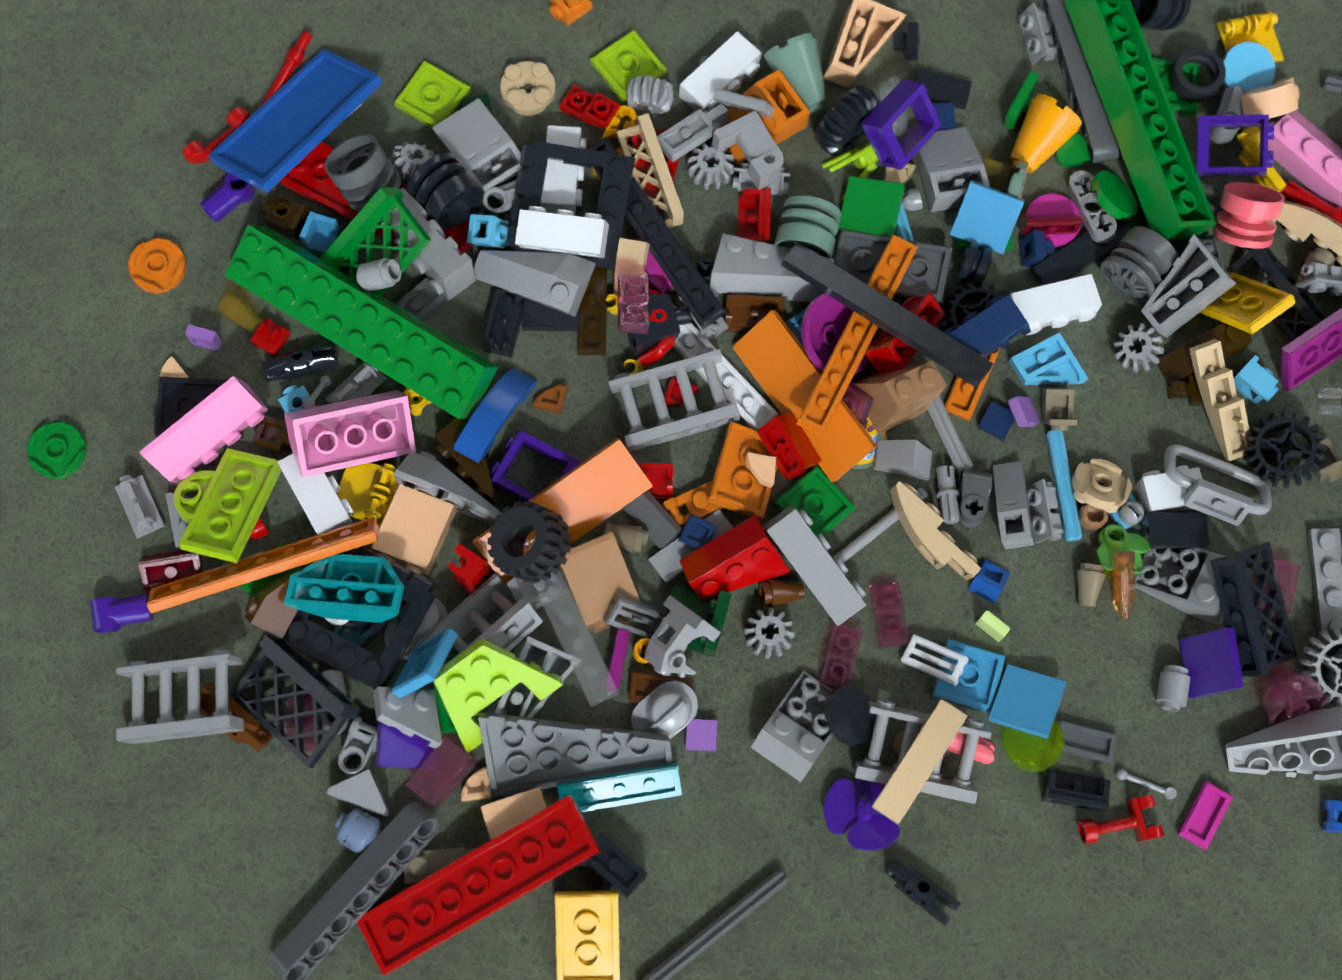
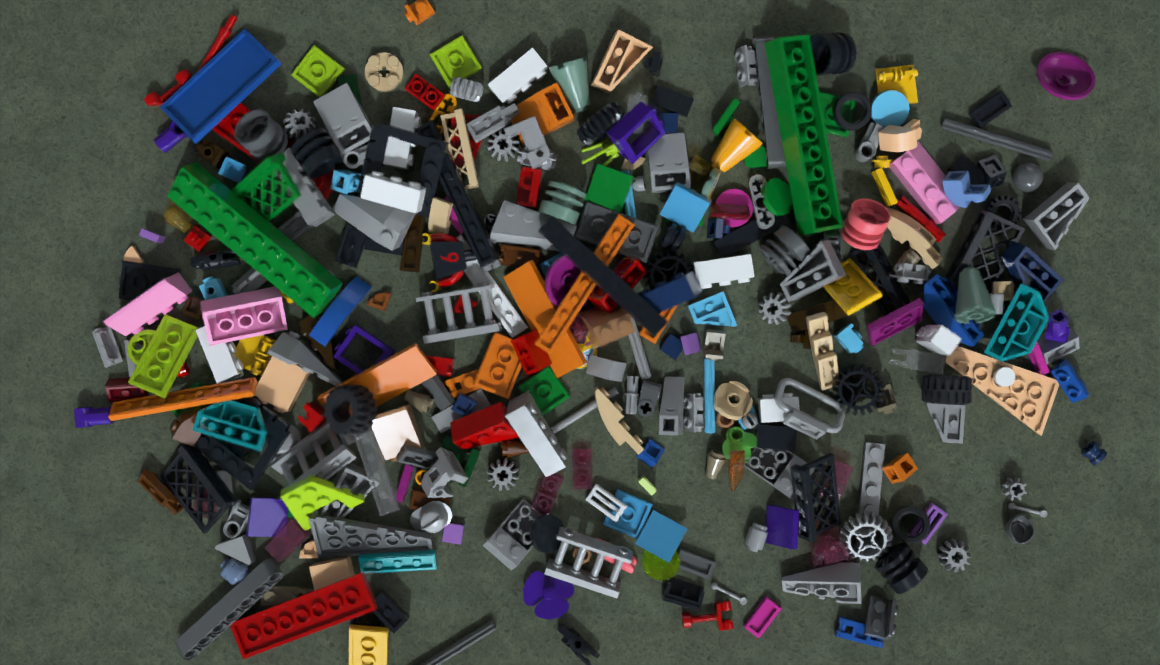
camera: 10 degrees right, 15 degrees up
(63, 457) = (55, 302): green tile -> none
(157, 265) = (129, 183): orange tile -> none
(193, 723) = (117, 495): light grey fence -> none
(310, 401) = (217, 293): light grey hinge -> none
(378, 274) = (266, 212): light grey brick -> none
(410, 714) = (268, 504): light grey wing -> none
(424, 663) = (278, 479): dark azure tile -> none
(632, 303) = (435, 249): clear pink slope -> none
(743, 102) = (528, 106): light grey tile -> none
(762, 468) = (510, 367): light nougat tile -> none
(919, 761) = (584, 572): tan slope -> none
(1223, 121) = (844, 172): dark purple window -> none

